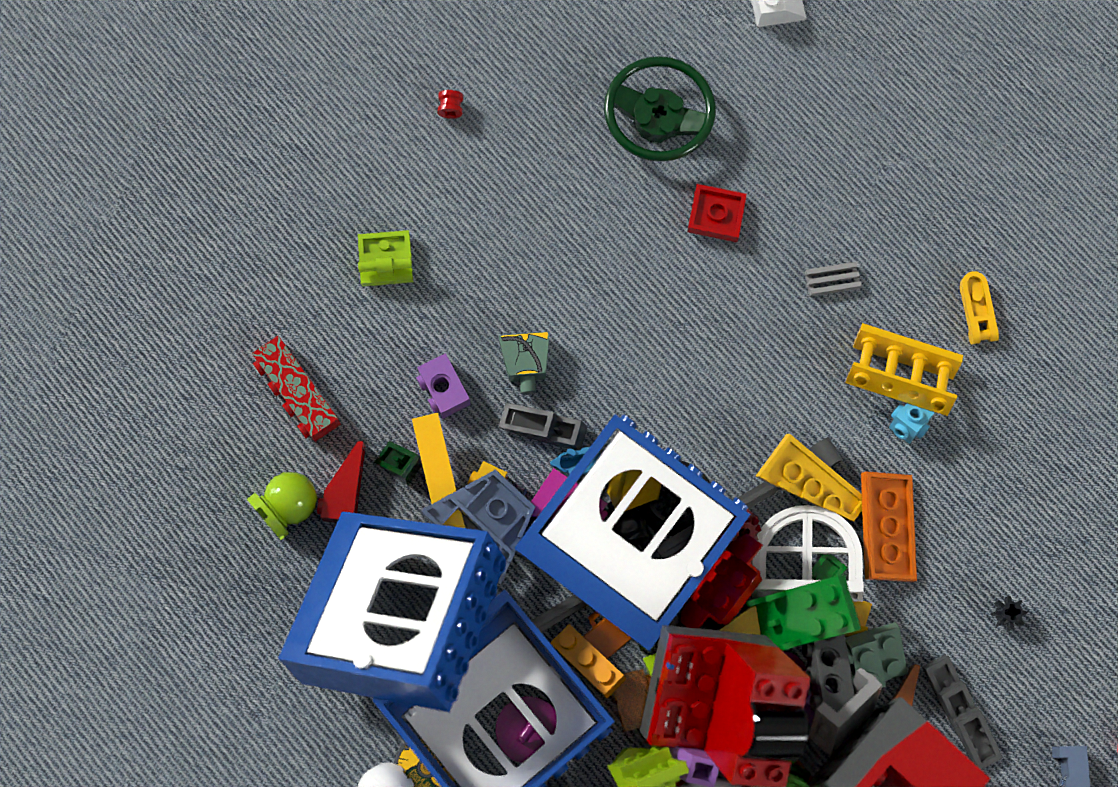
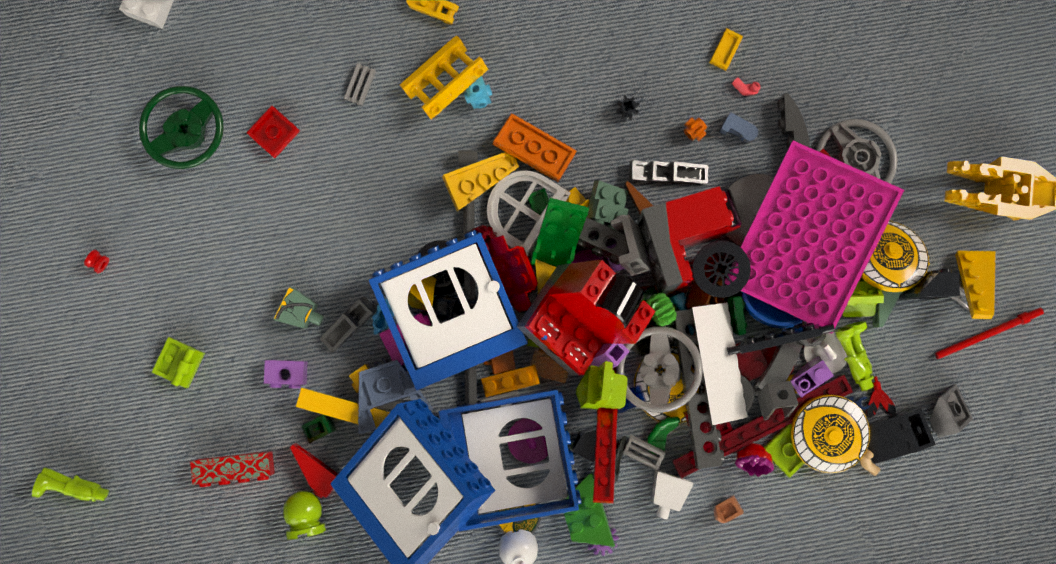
camera: 60 degrees left, 10 degrees up
(176, 224) = (74, 487): none -> lime piece
(1037, 713) = (695, 129): none -> orange gear

